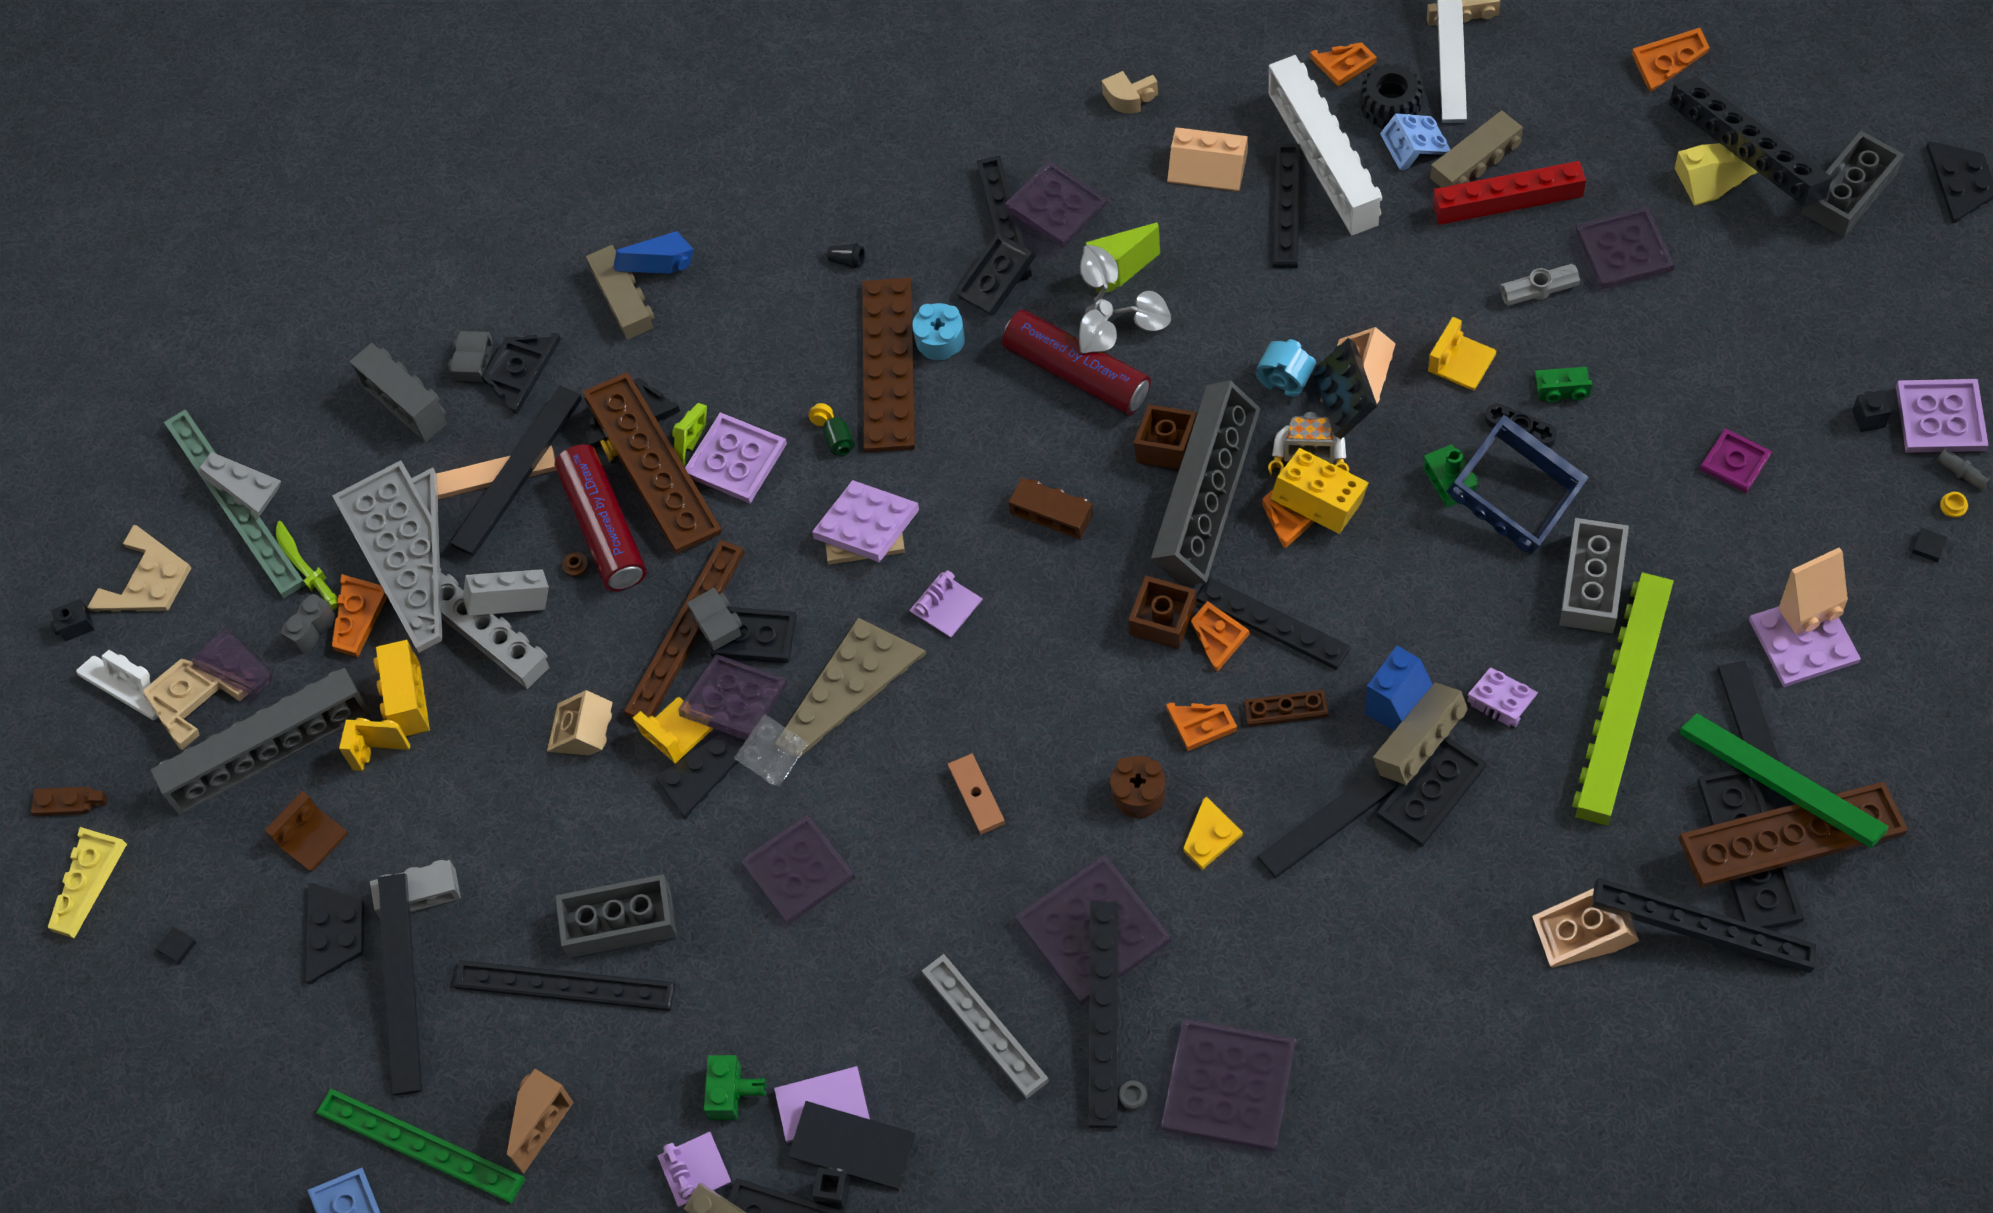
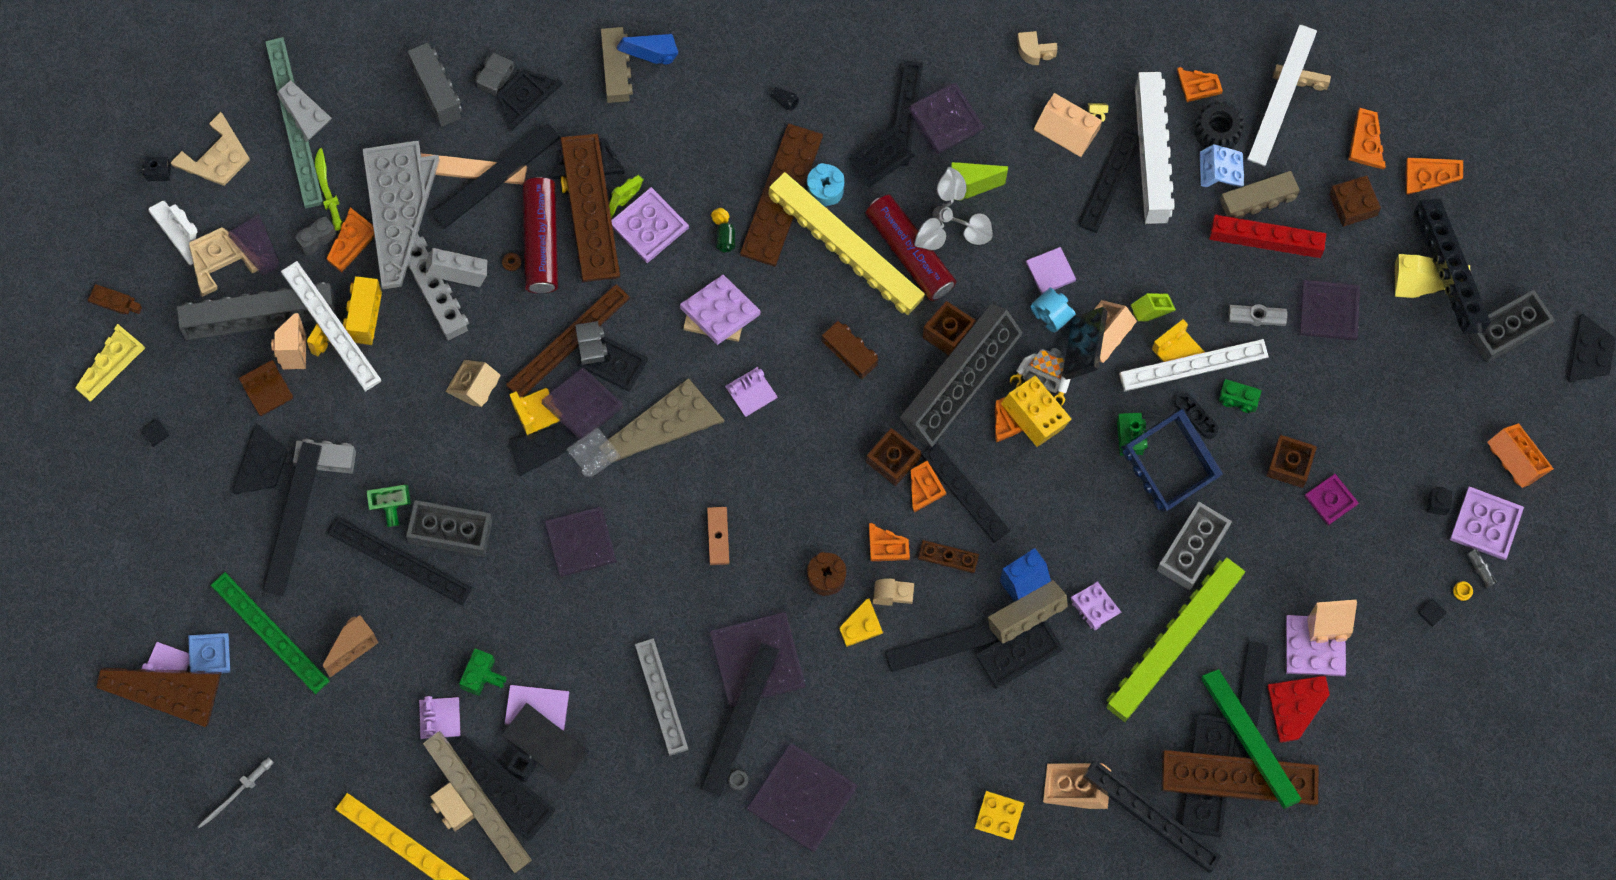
camera: 10 degrees right, 10 degrees up
(319, 762) = (290, 344): none -> light nougat slope
(366, 718) = (331, 326): none -> white tile
(521, 910) = (389, 500): none -> green brick
(993, 387) = (846, 244): none -> light yellow brick
(1229, 775) = (889, 591): none -> tan brick
(1237, 128) = (1098, 108): none -> light yellow tile
(1260, 326) = (1051, 270): none -> lavender tile
(1405, 321) = (1152, 306): none -> lime slope
(1488, 369) = (1193, 365): none -> white tile
(1501, 1005) = (999, 815): none -> yellow hinge
(1573, 51) = (1366, 140): none -> orange wing
(1594, 117) = (1354, 201): none -> reddish brown brick
(1665, 431) = (1291, 461): none -> reddish brown brick
(1817, 720) = (1296, 705): none -> red plate
(1939, 324) = (1519, 455): none -> orange slope

